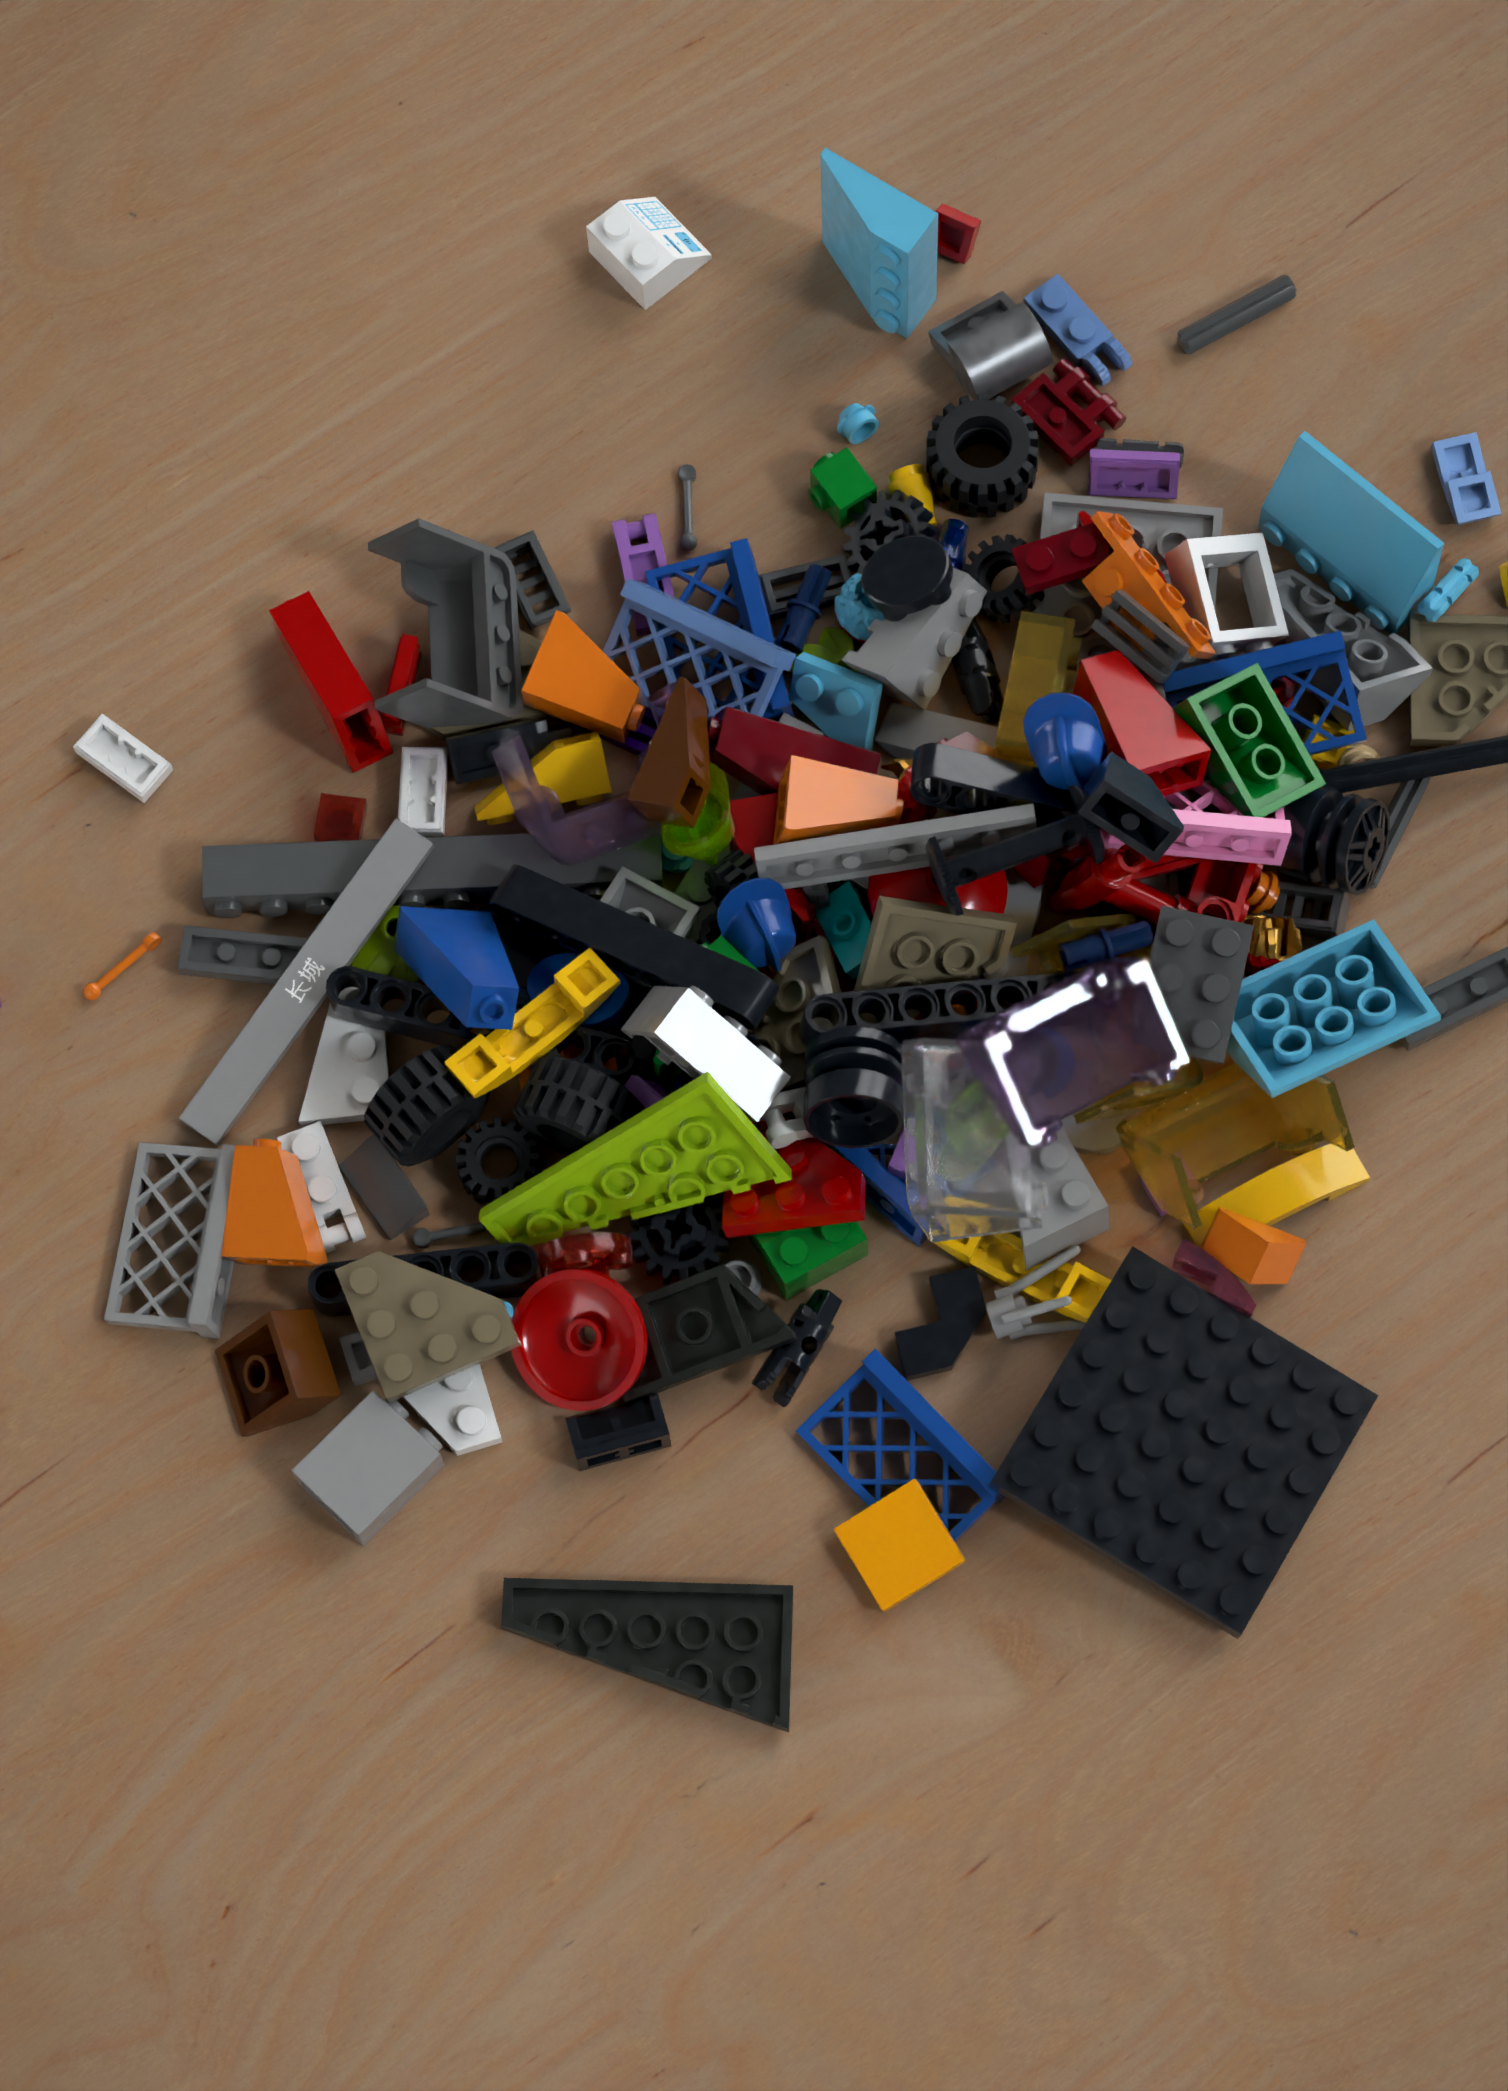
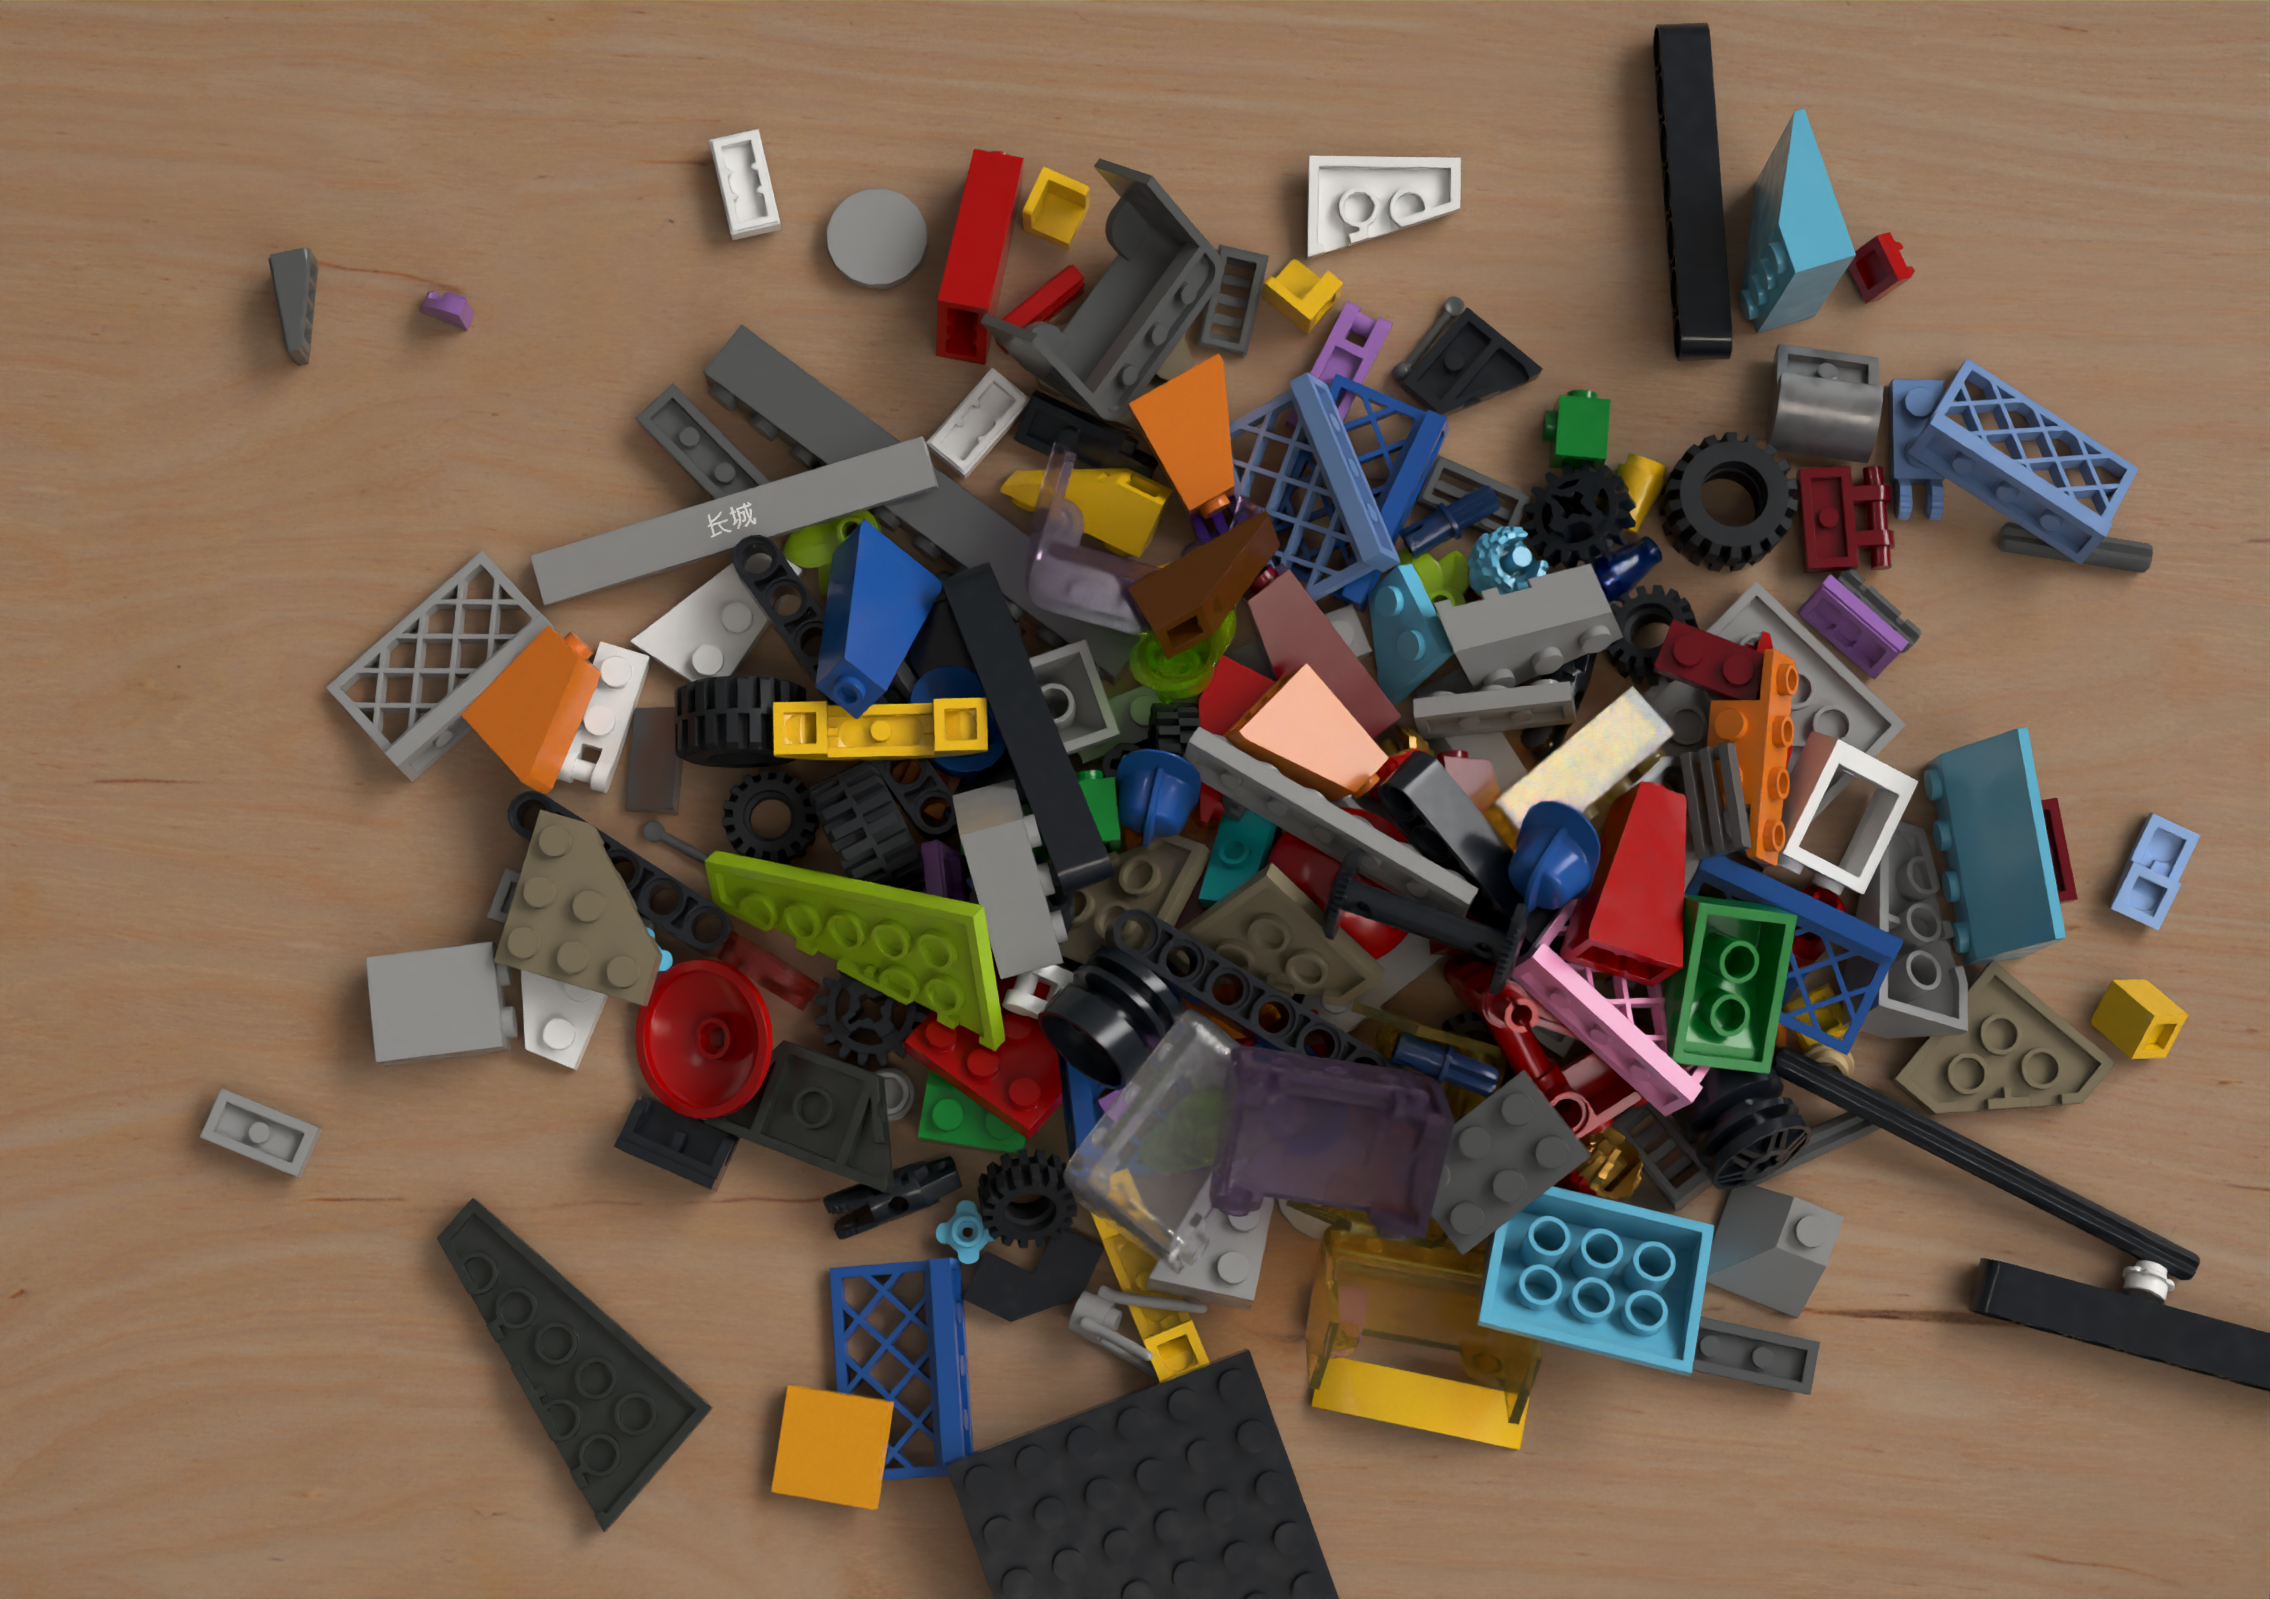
camera: 30 degrees right, 10 degrees up
(93, 990) = (553, 378): orange hinge -> none
(247, 725) = (877, 238): none -> light grey tile
(277, 1371) = (432, 855): reddish brown slope -> none
(313, 1656) = (261, 1133): none -> light grey plate
(340, 818) = (886, 392): clear red plate -> none
(358, 609) = (1056, 208): none -> yellow panel
(572, 440) = (1374, 196): none -> white wing
(576, 543) = (1302, 294): none -> yellow panel
(645, 248) = (1590, 63): white slope -> none
(731, 501) = (1468, 367): none -> black wing
(787, 278) = (1692, 192): none -> black beam
(857, 423) = (1643, 380): medium azure plate -> none
(861, 1339) = (951, 1232): none -> medium azure plate
(876, 1258) = (1030, 1219): none -> black tyre
(907, 576) = (1555, 572): black tile -> none
(941, 701) = (1494, 709): none -> light grey plate
(1130, 808) = (1554, 971): black slope -> none
(1158, 300) = (2010, 482): none -> medium blue fence
(1206, 1269) = (1303, 1450): clear pink slope -> none
(1252, 1248) = (1354, 1435): orange slope -> none
(1263, 893) = (1637, 1120): orange plate -> none
(1425, 909) = (1771, 1248): none -> light grey slope
(1448, 590) = (2047, 965): medium azure axle -> none

